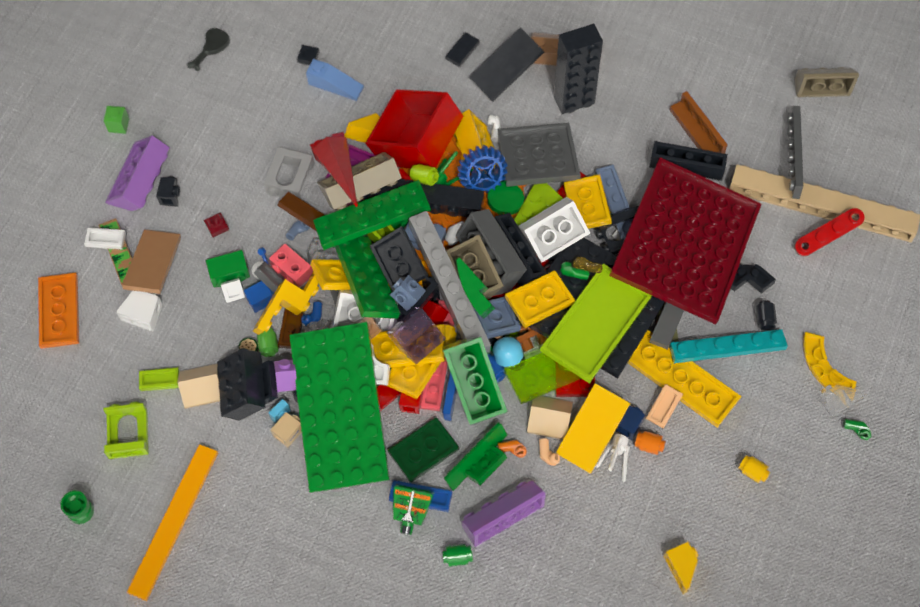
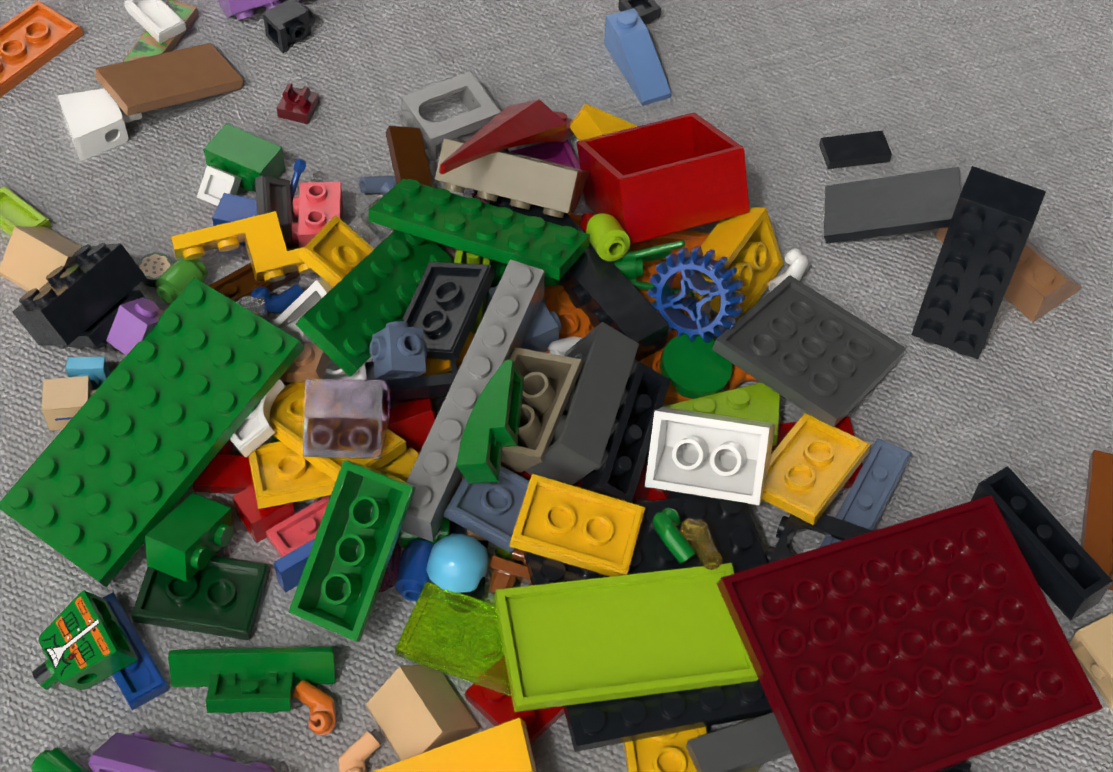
camera: 40 degrees right, 10 degrees down
(400, 433) = (189, 537): none -> green brick

